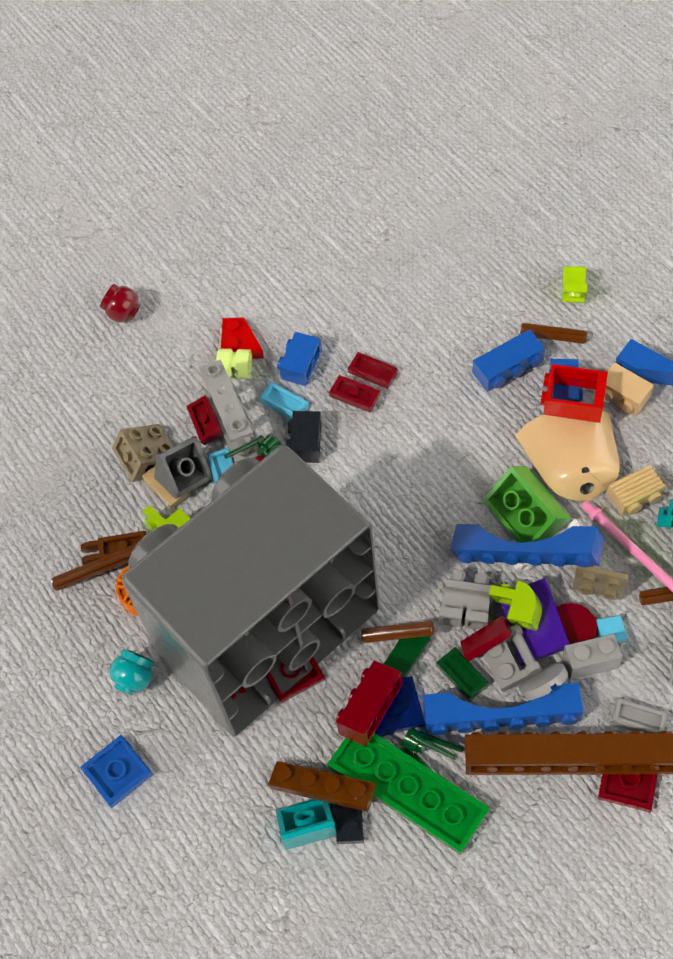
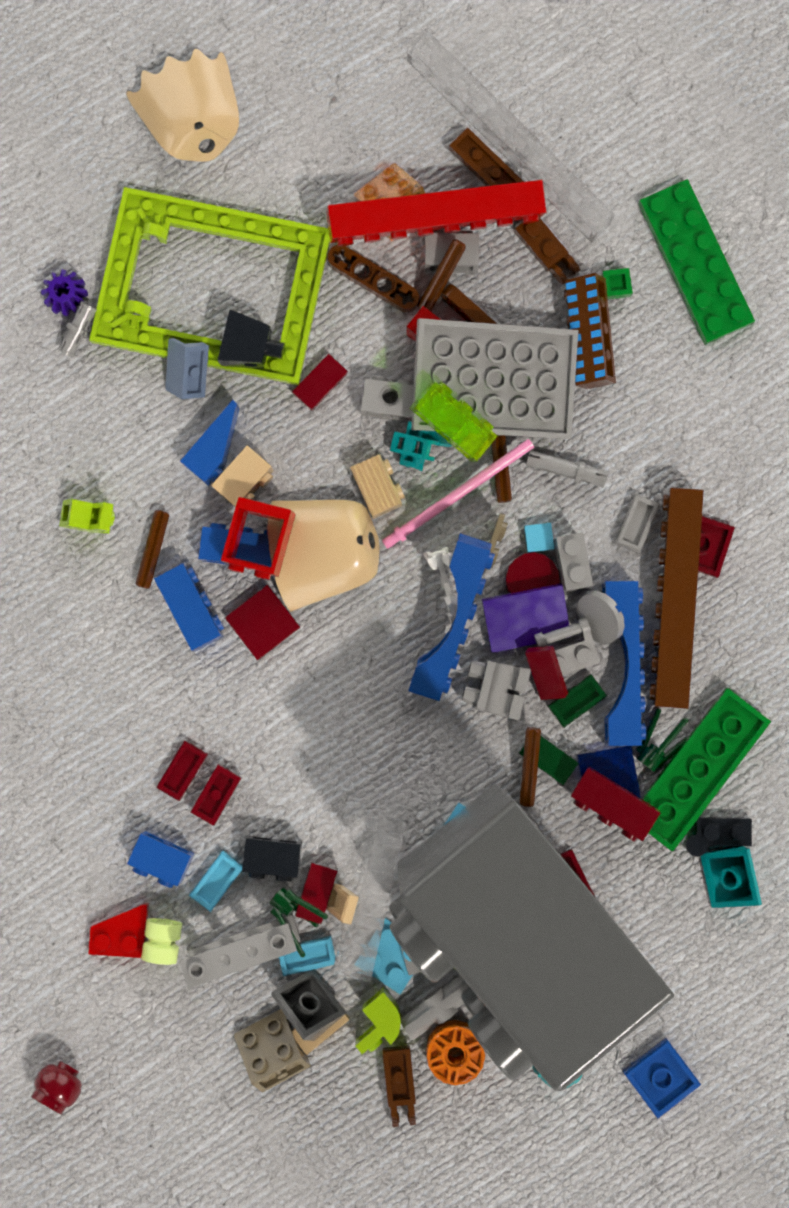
camera: 90 degrees left, 25 degrees up
(92, 568) = (422, 1094): reddish brown axle -> none
(204, 420) = (238, 982): dark red plate -> none
(322, 786) = (696, 858): reddish brown plate -> none
(502, 416) = (262, 622): none -> dark red tile
(524, 603) = (513, 626): lime brick -> none
(525, 506) = (388, 610): bright green slope -> none

